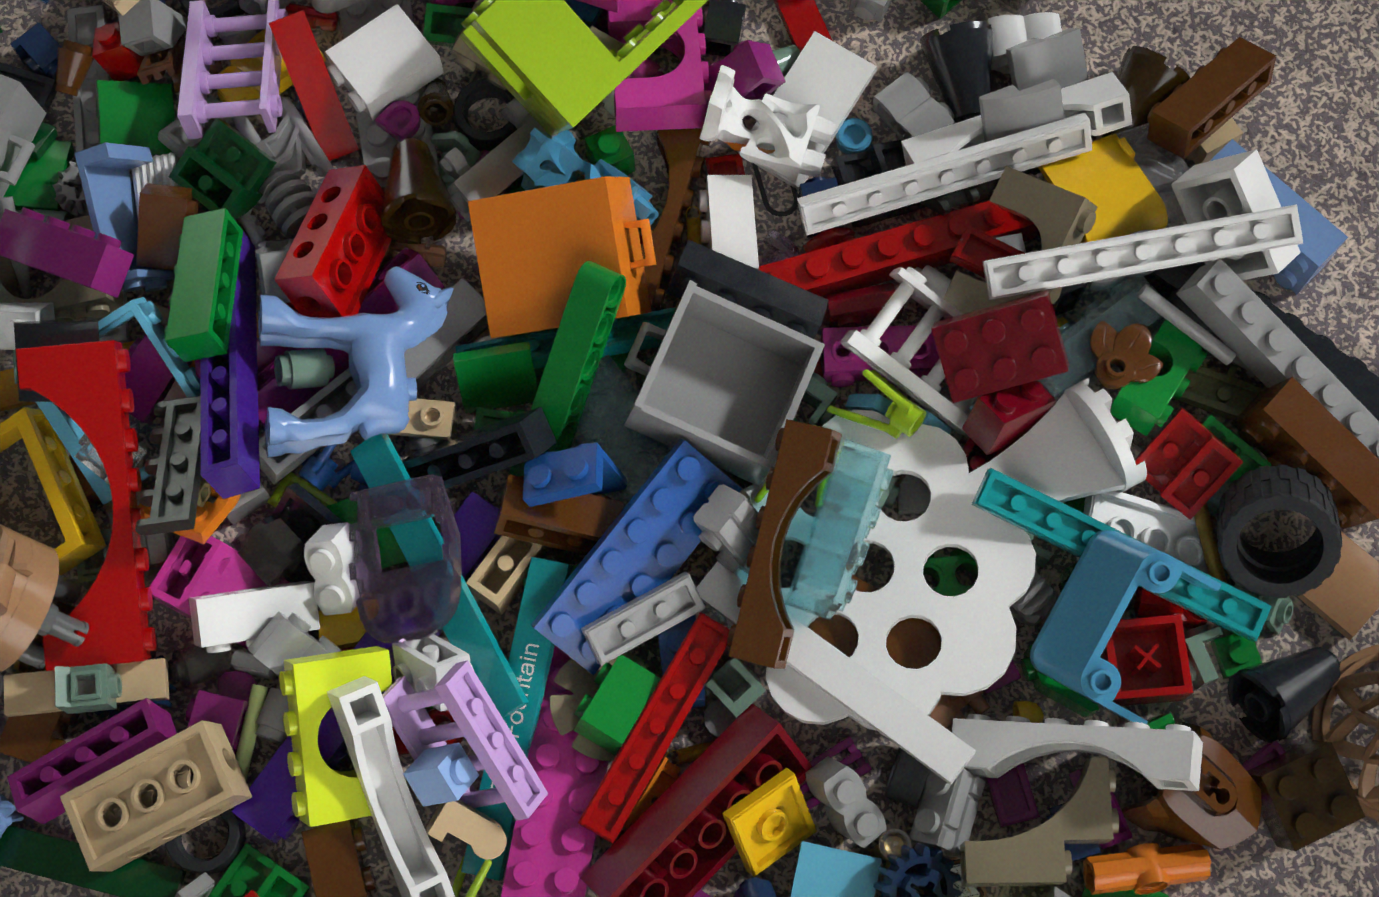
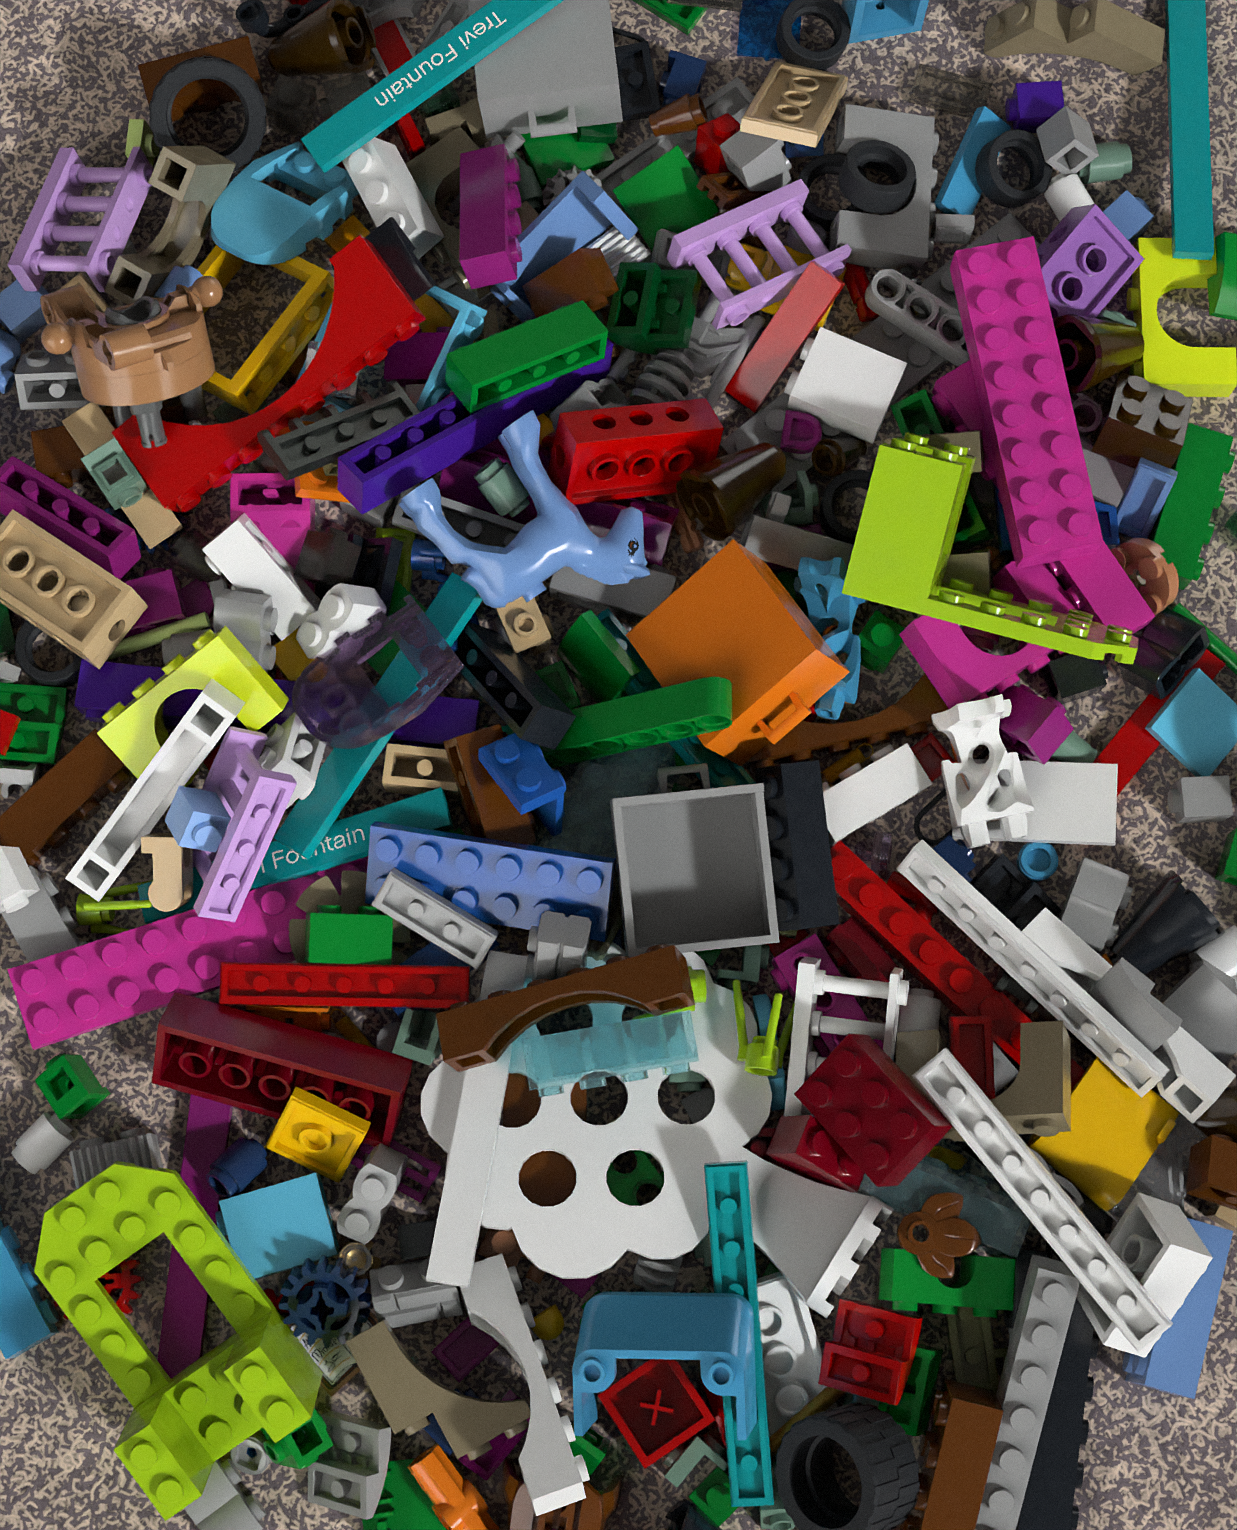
camera: 60 degrees right, 5 degrees up
(1186, 324) = (1006, 1280): light grey bar -> none

